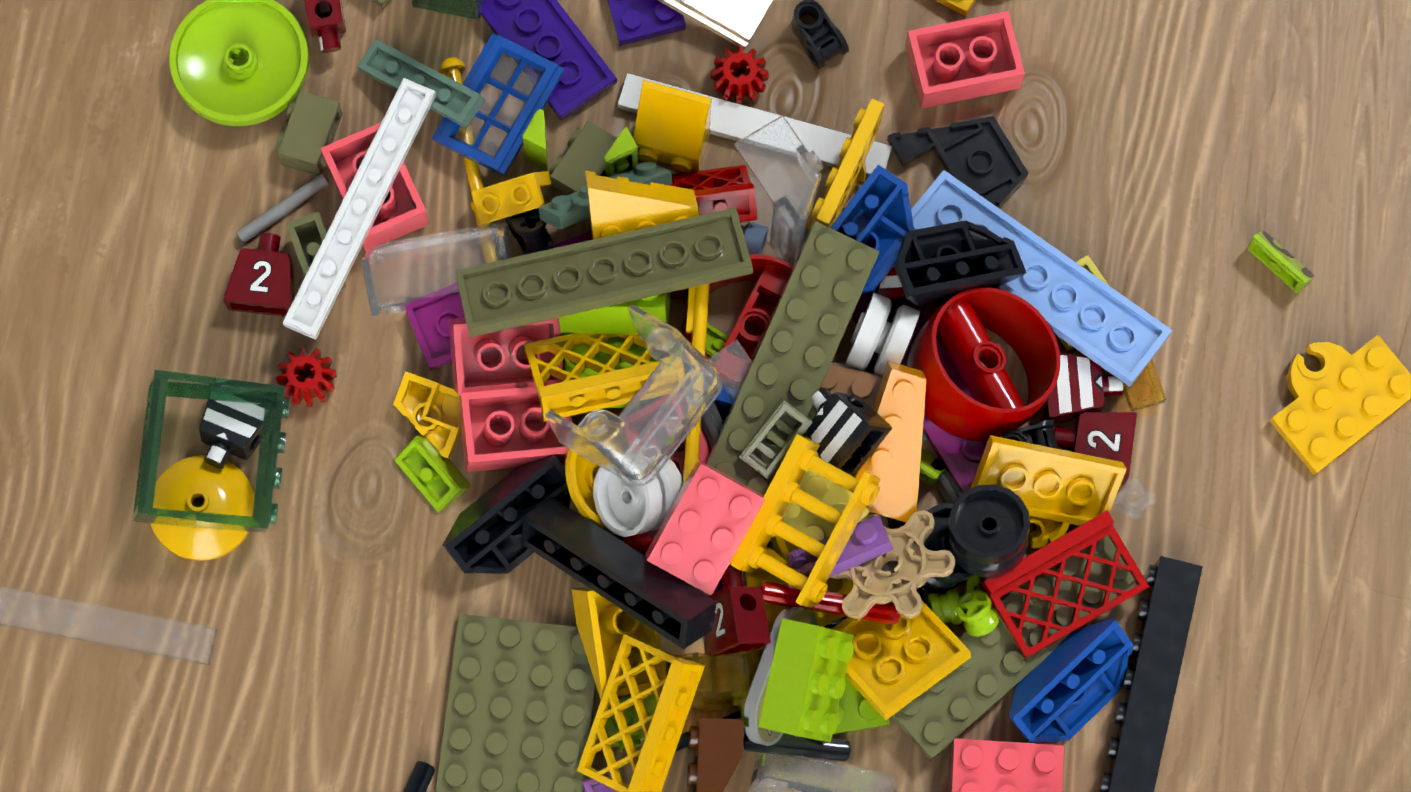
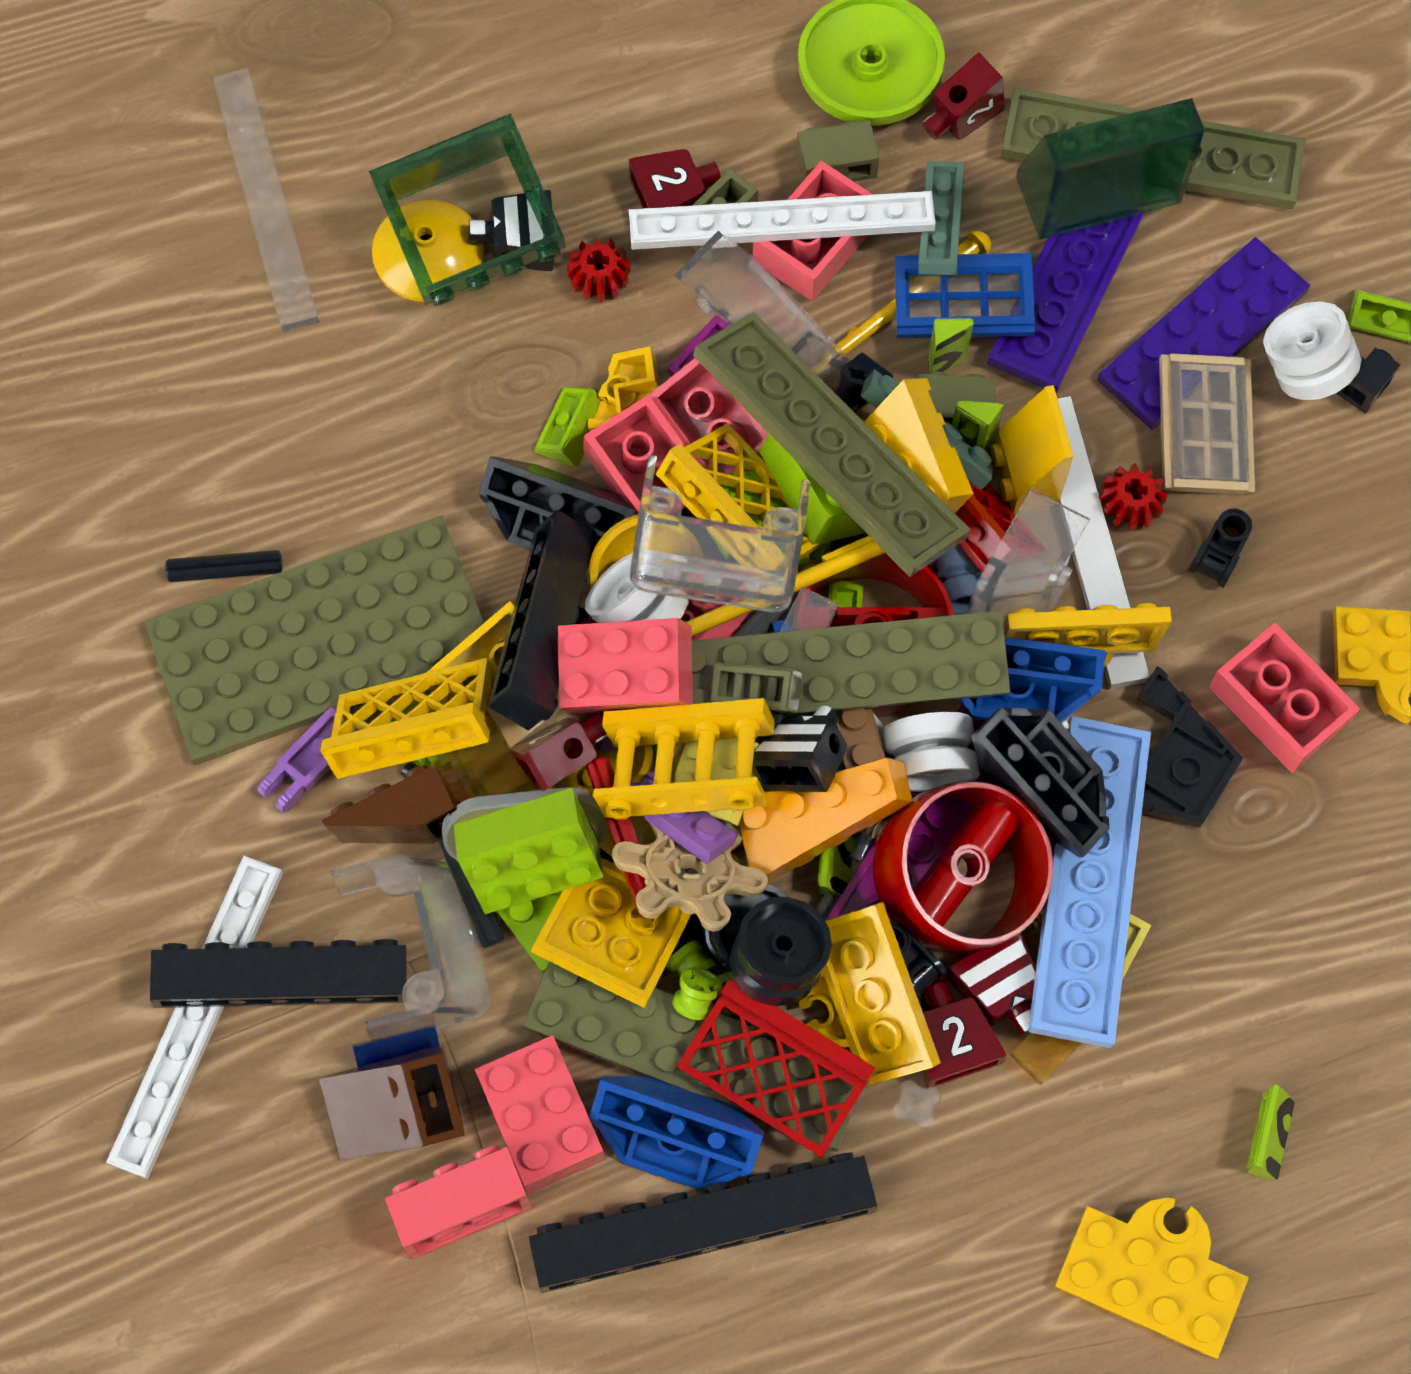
camera: 65 degrees right, 5 degrees down
(282, 208) = (748, 170): light grey bar -> none
(510, 197) = (876, 348): yellow bracket -> none

